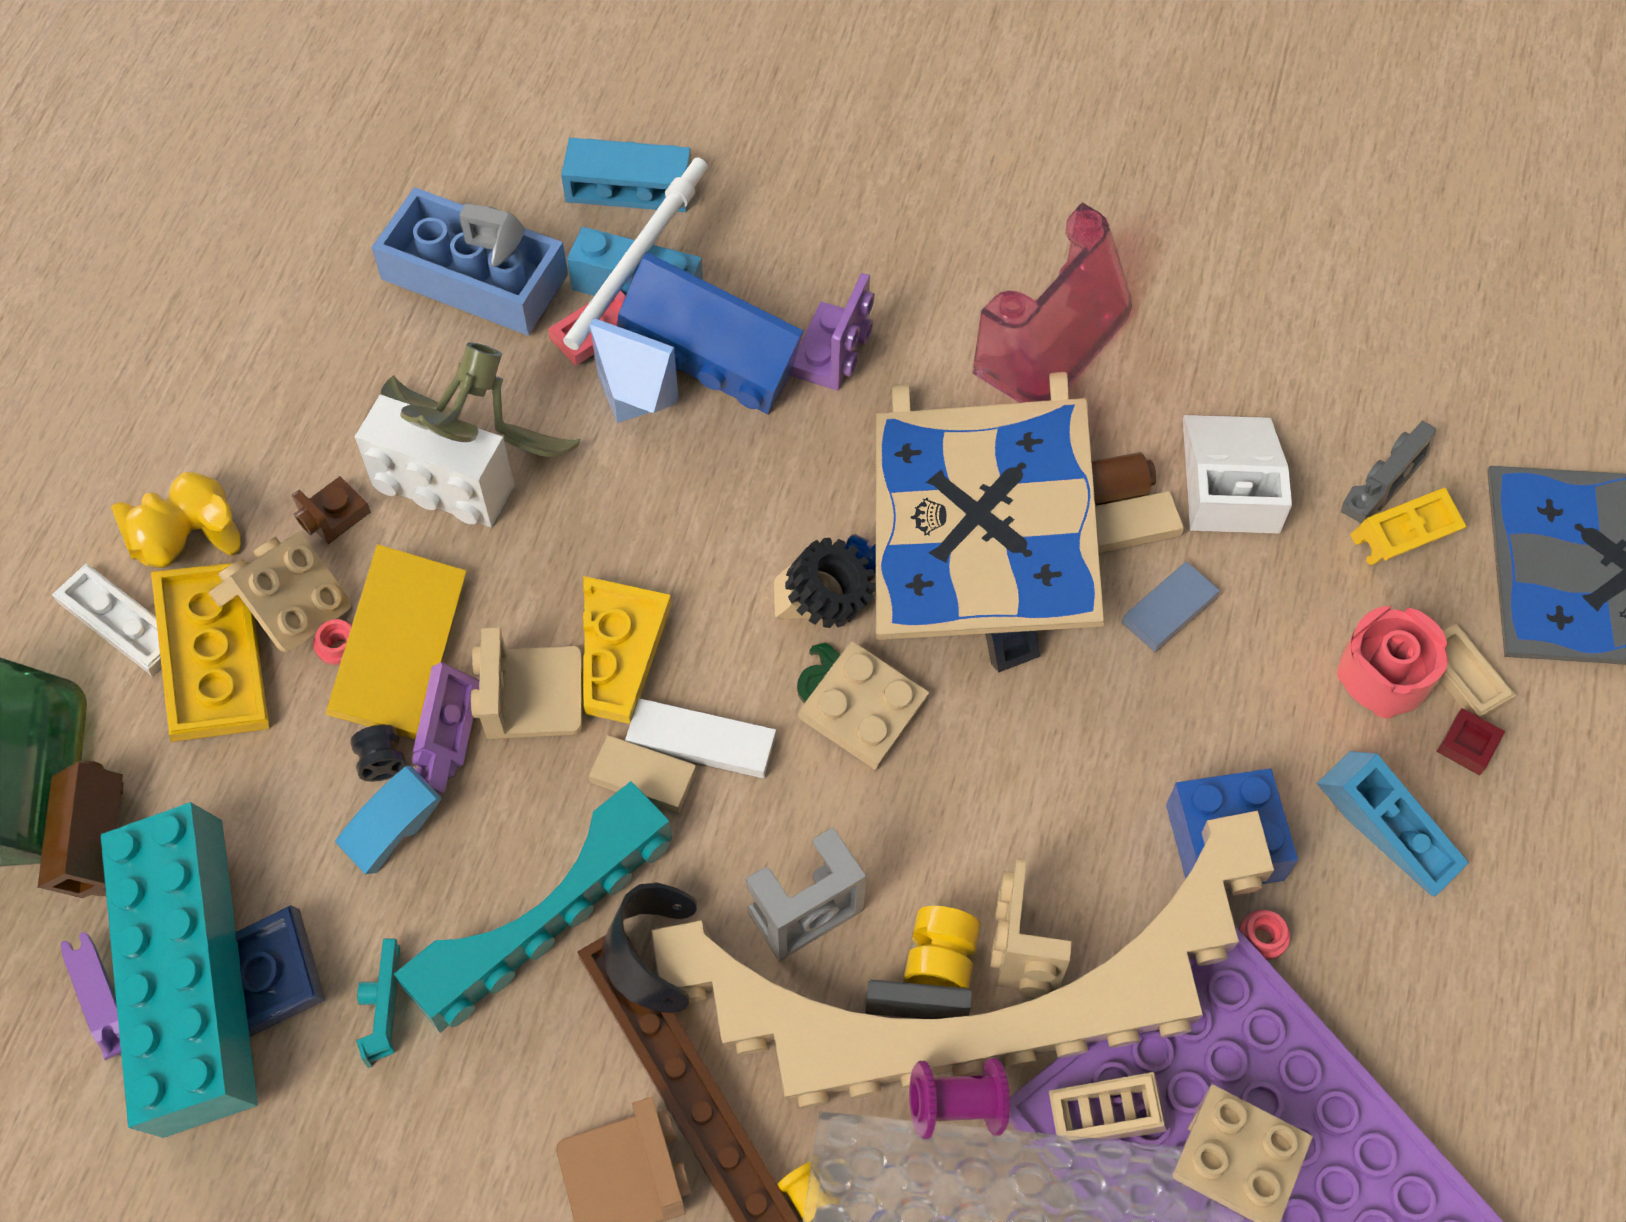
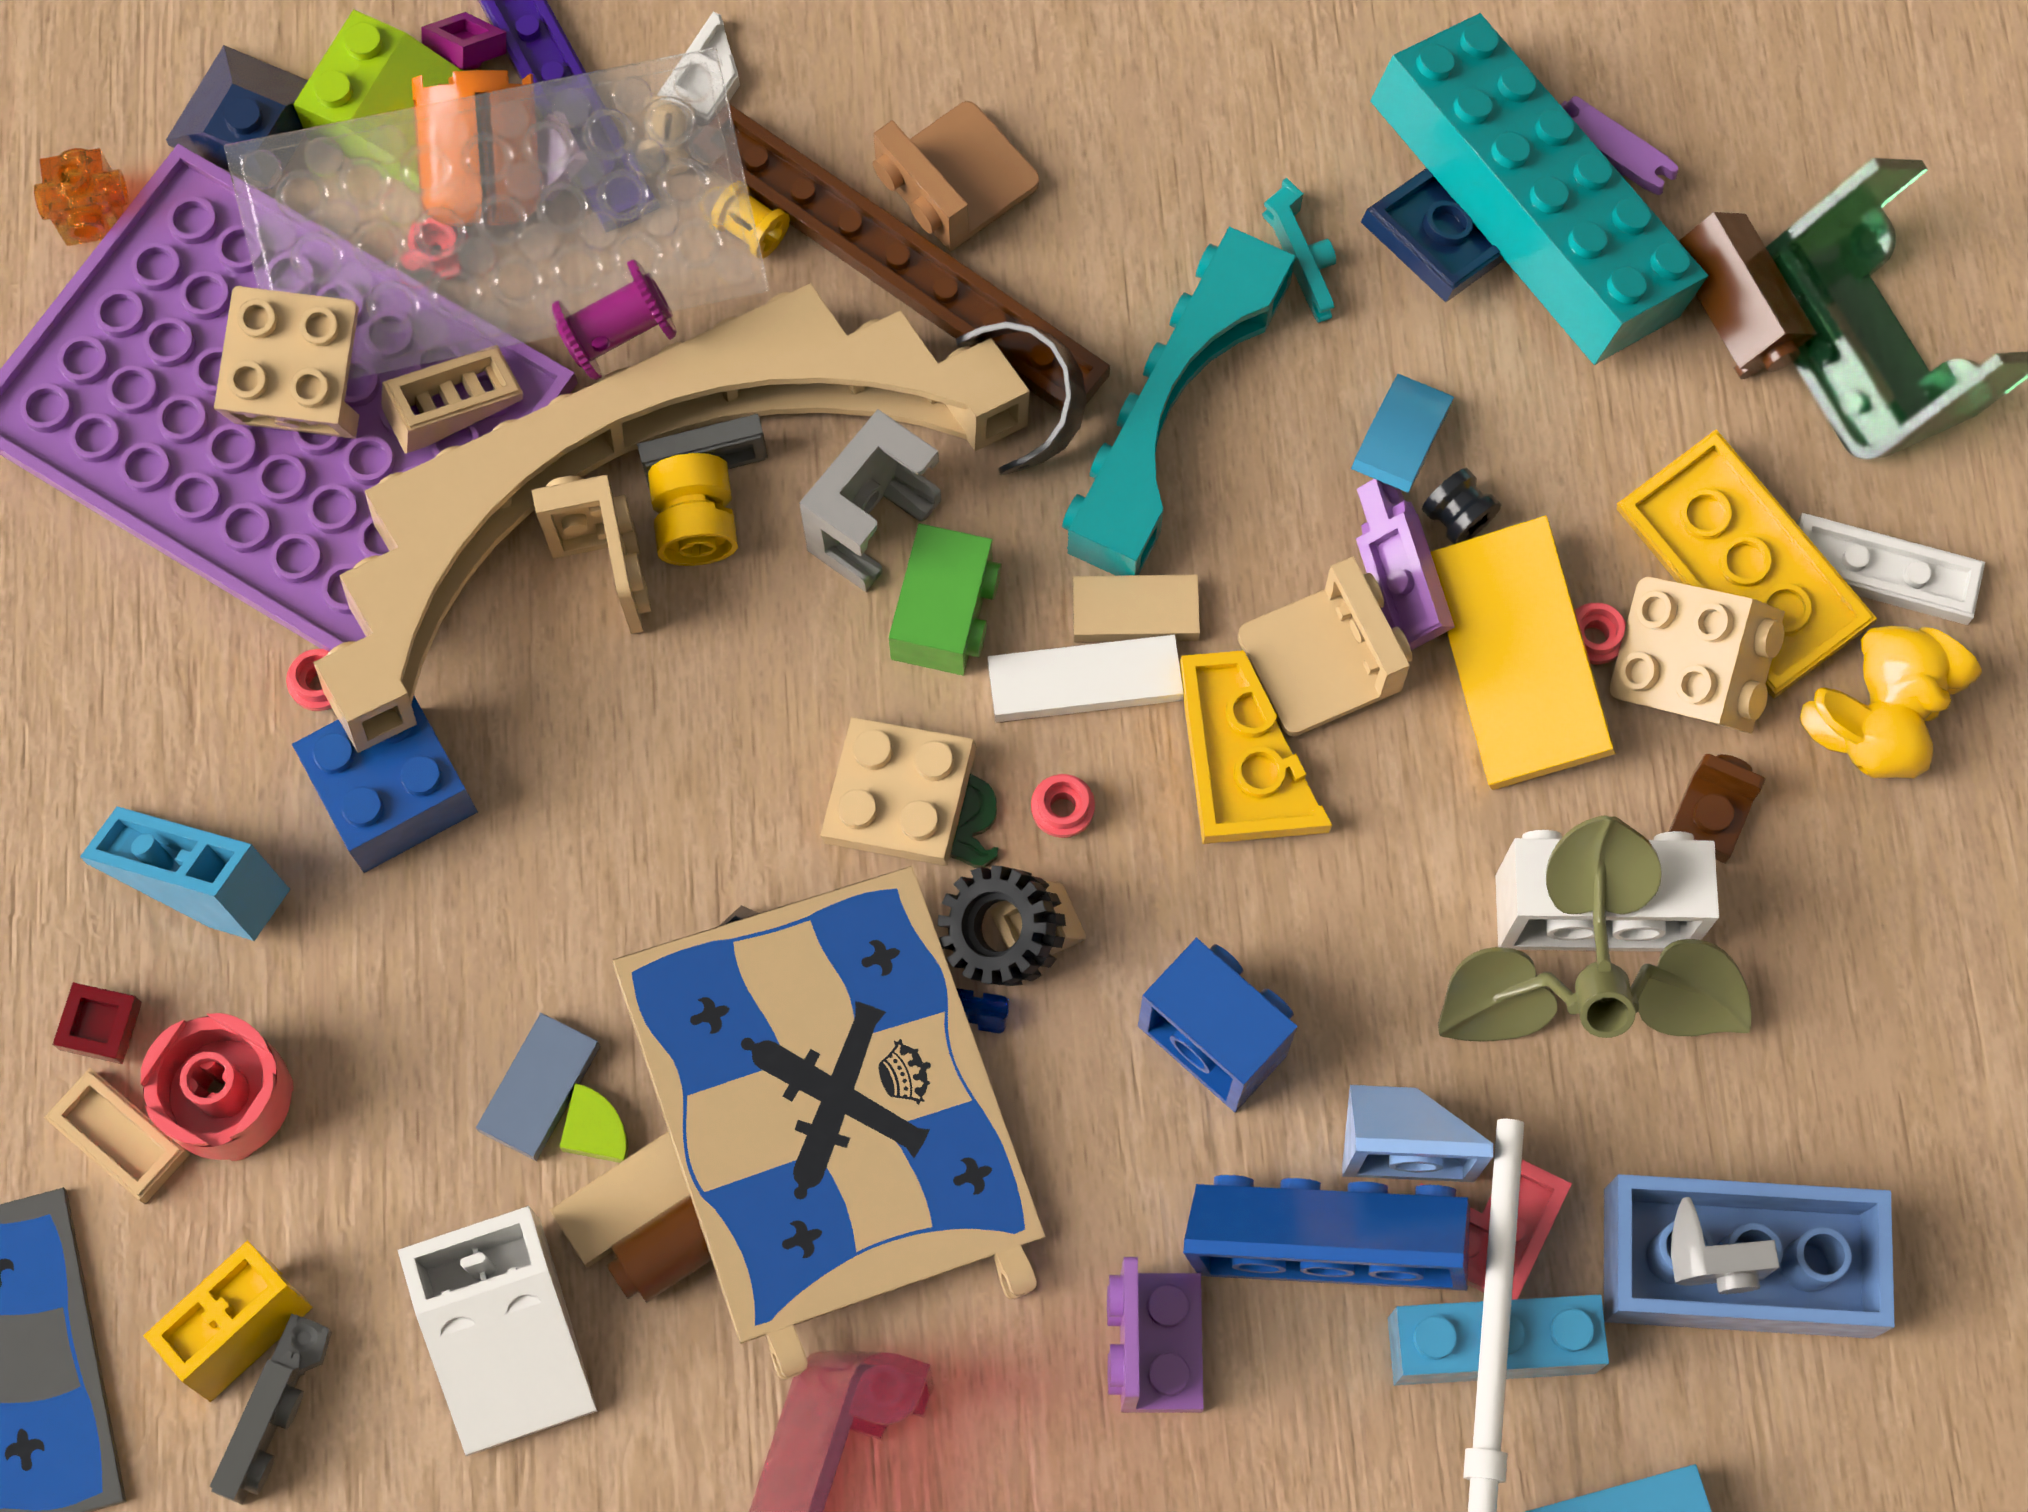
camera: 160 degrees right, 10 degrees up
(718, 471) = (1217, 1022): none -> blue brick
(754, 646) = (1062, 787): none -> coral plate
(779, 818) = (942, 600): none -> bright green brick
(1140, 569) = (593, 1127): none -> lime tile

